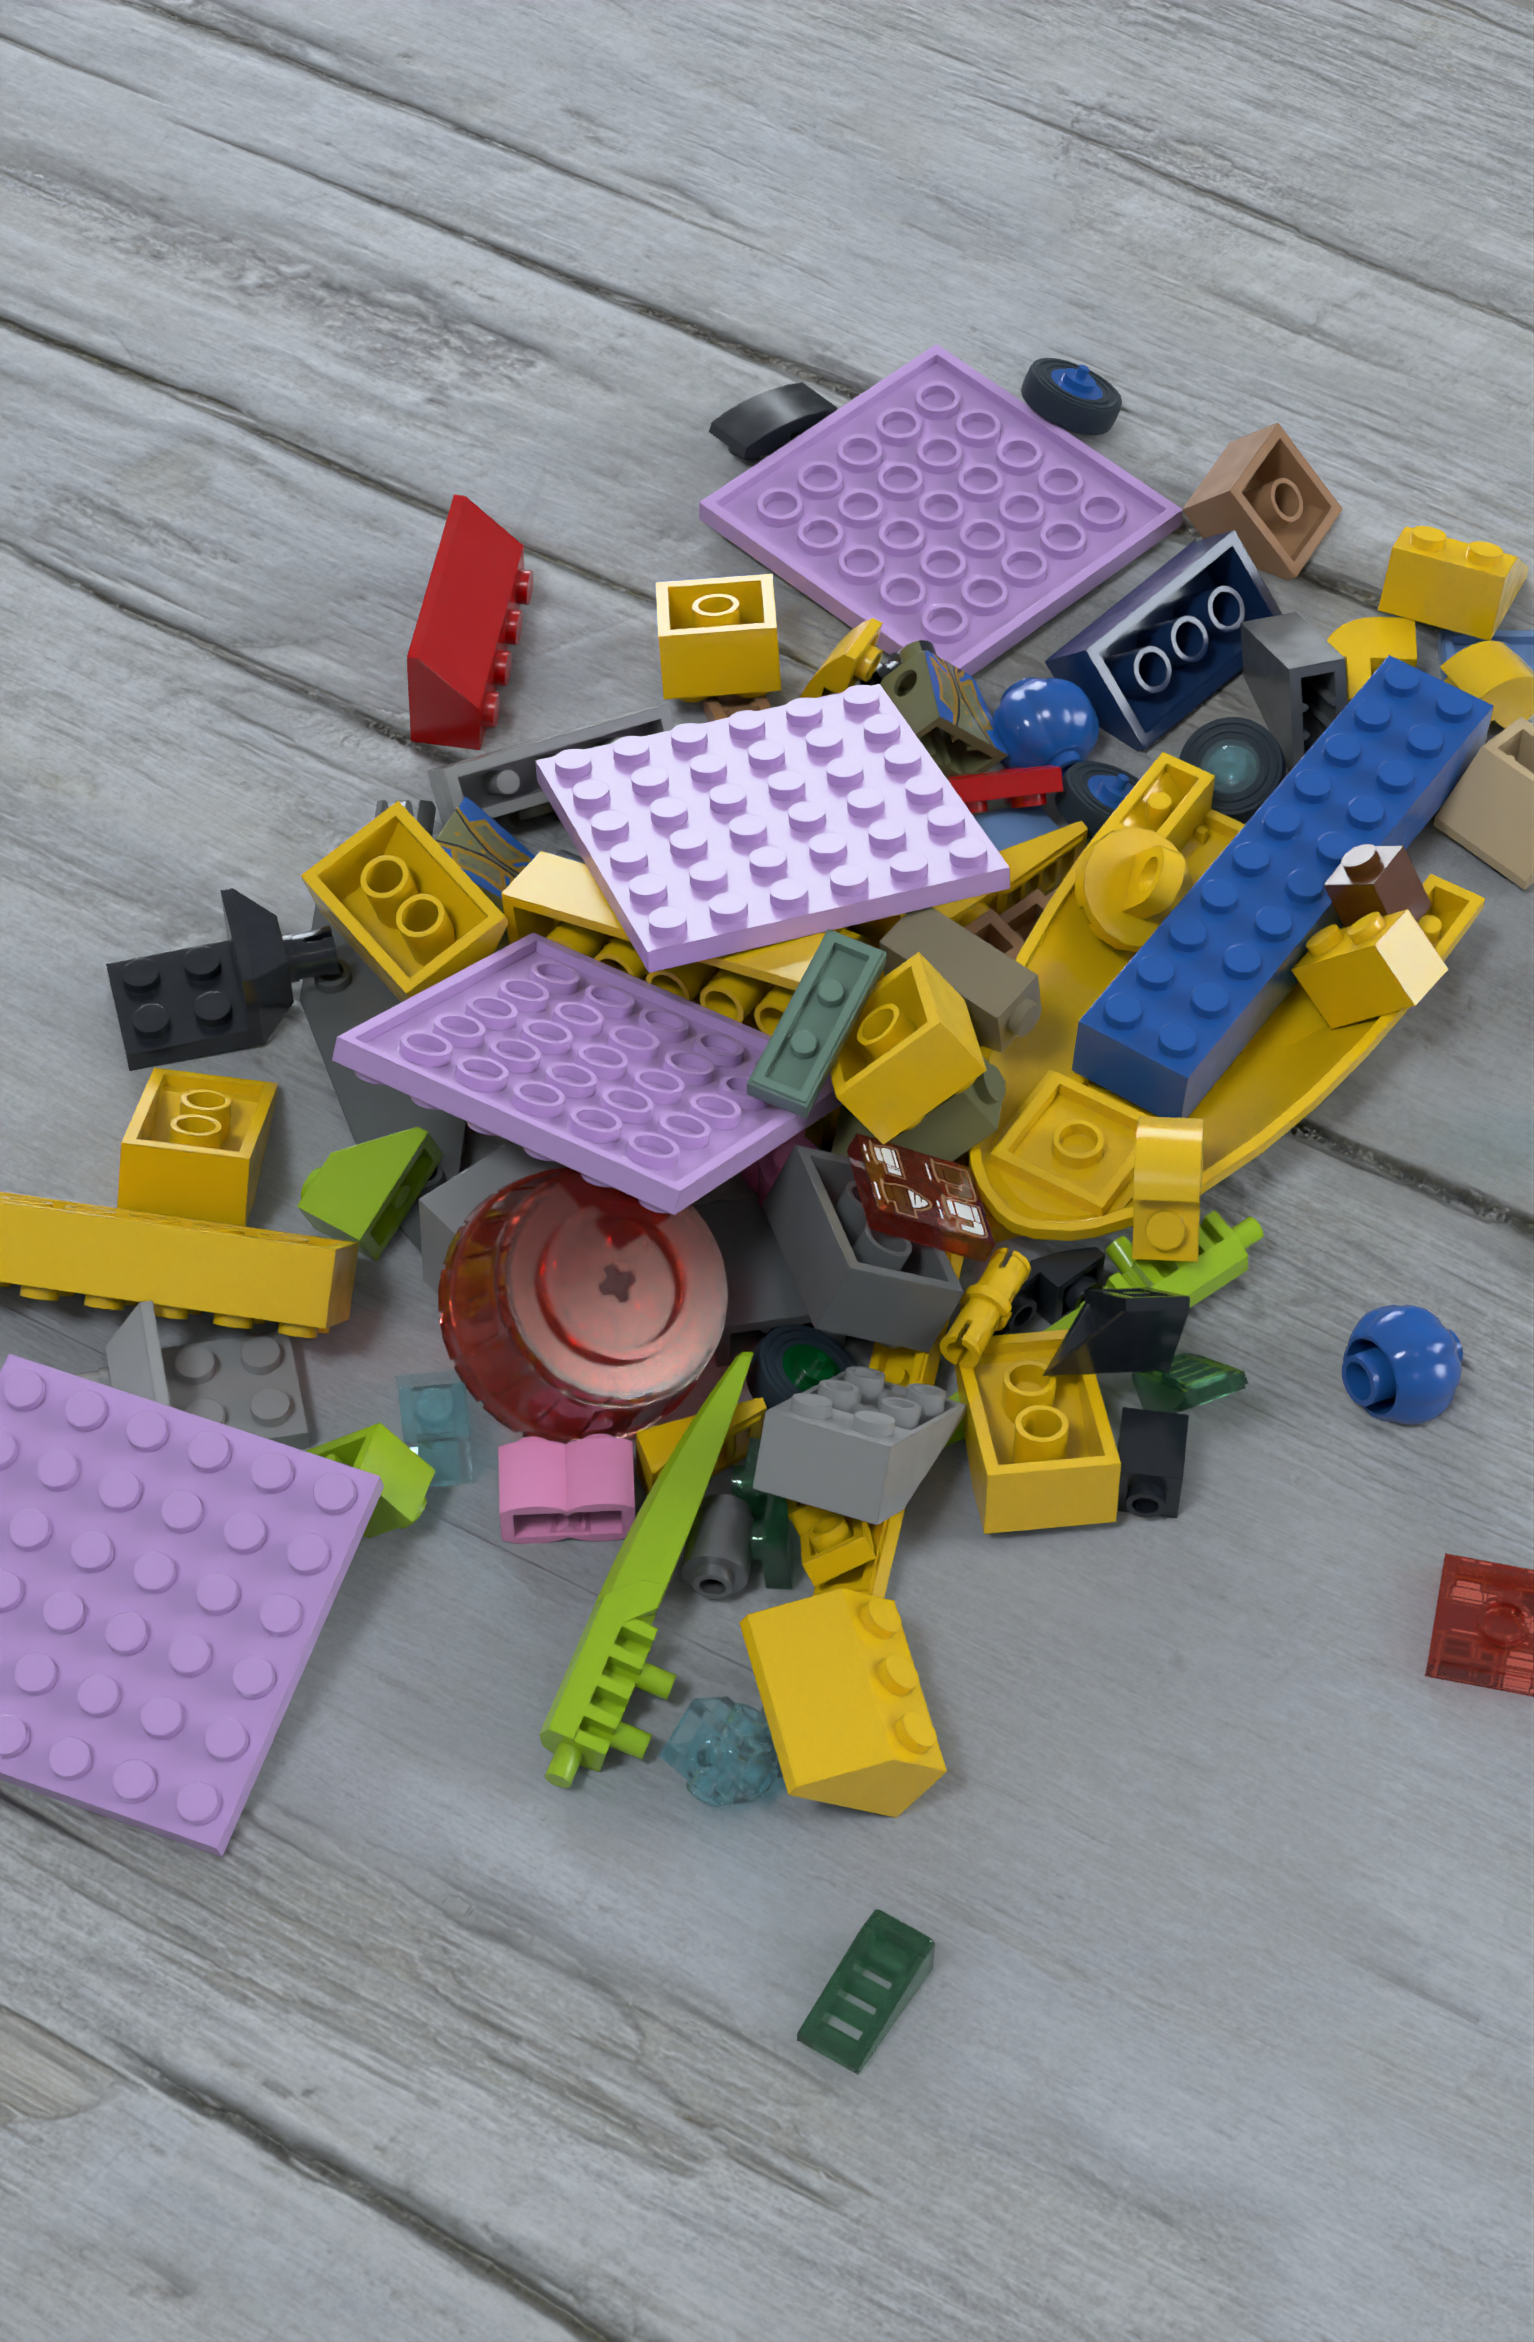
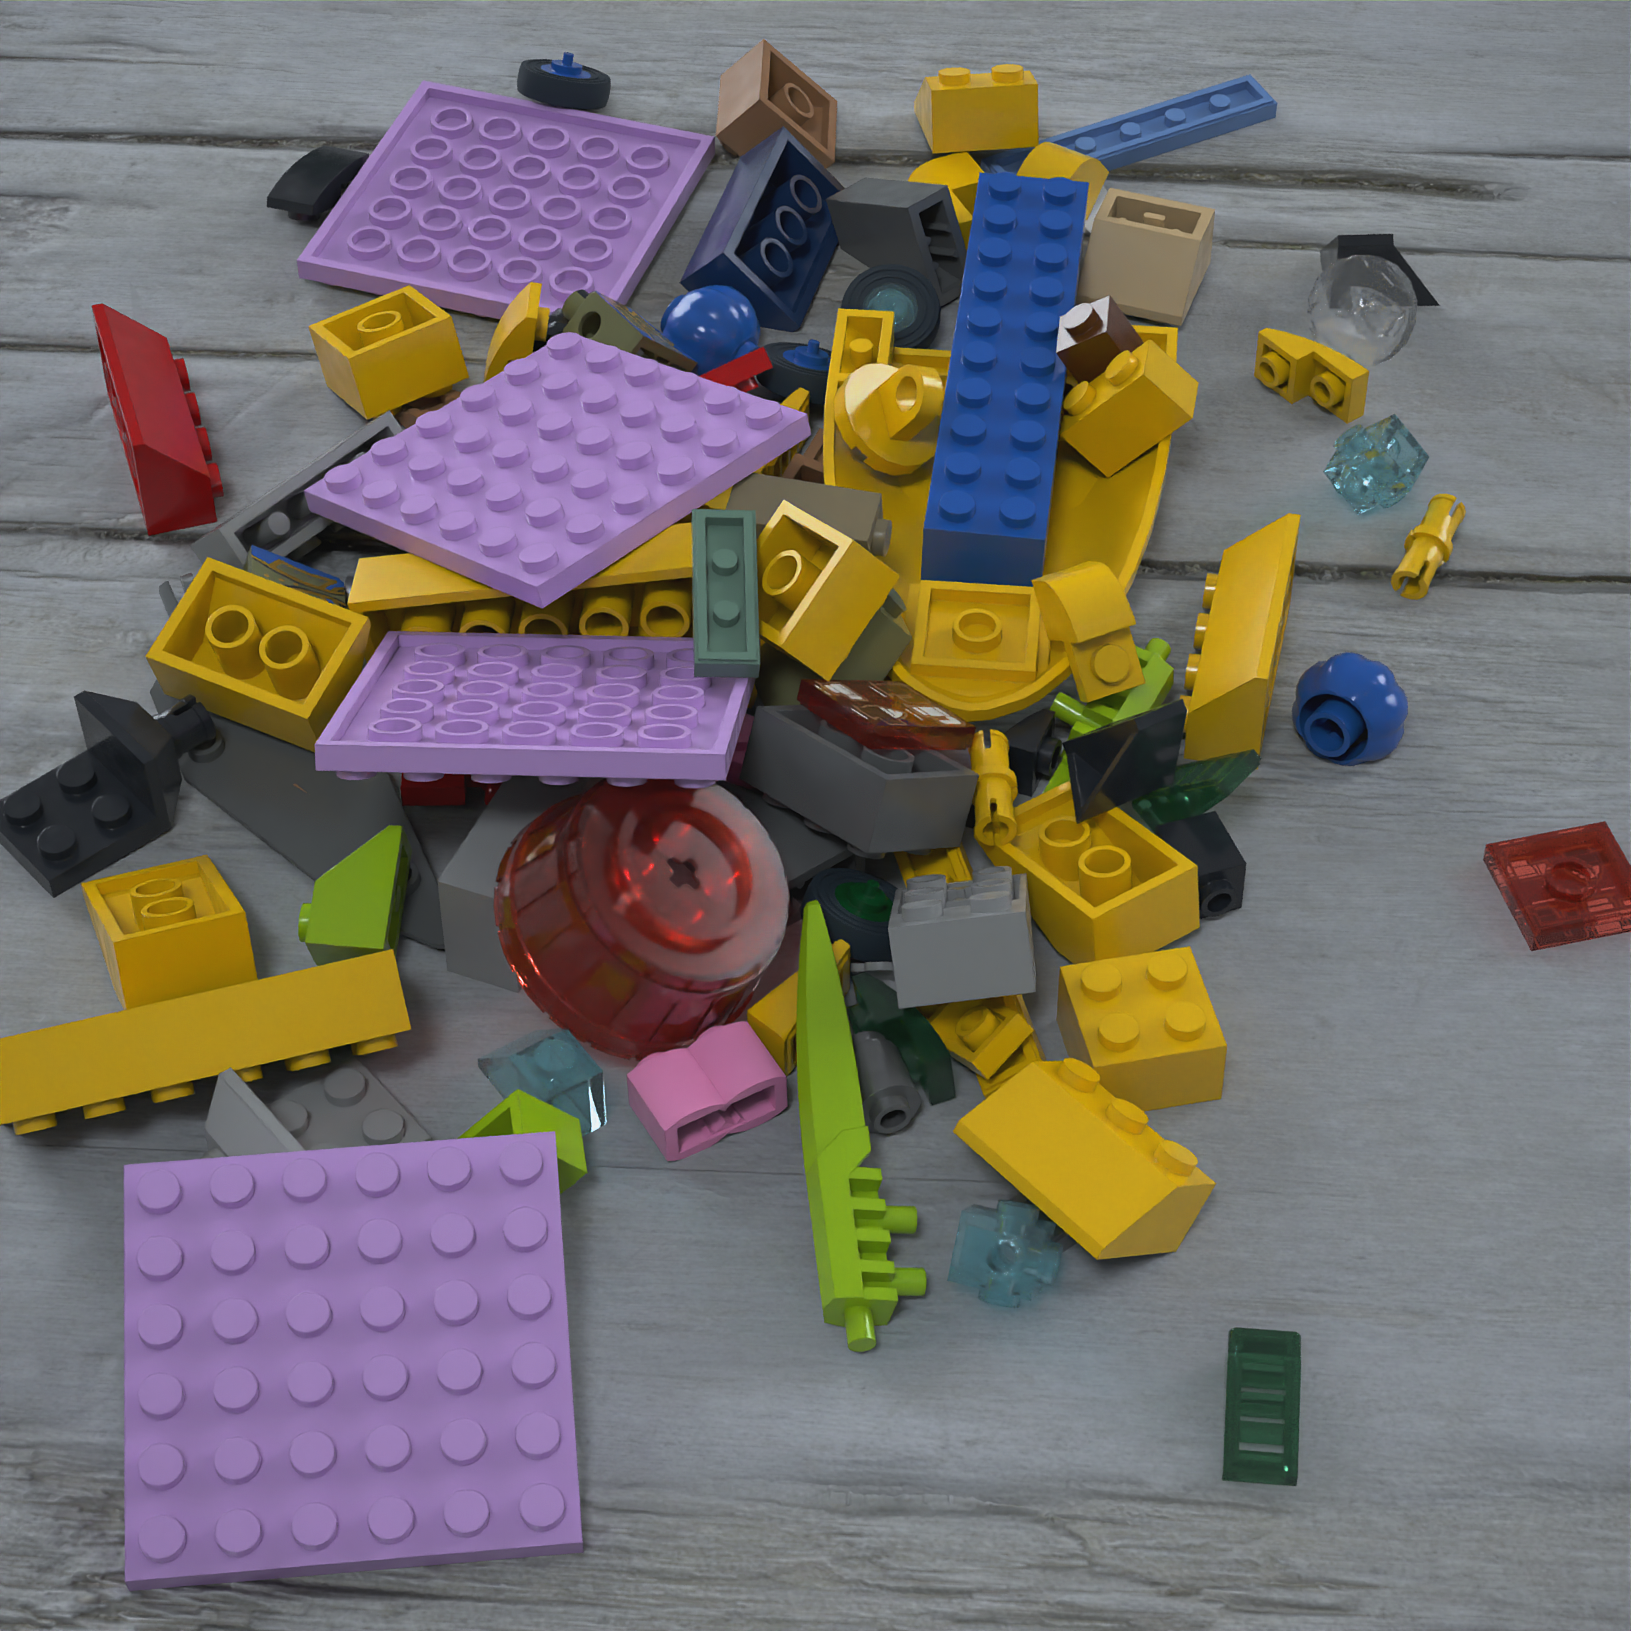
camera: 25 degrees left, 5 degrees down
(985, 1600) = (1144, 1027): none -> yellow brick
(1337, 1261) = (1240, 643): none -> yellow slope

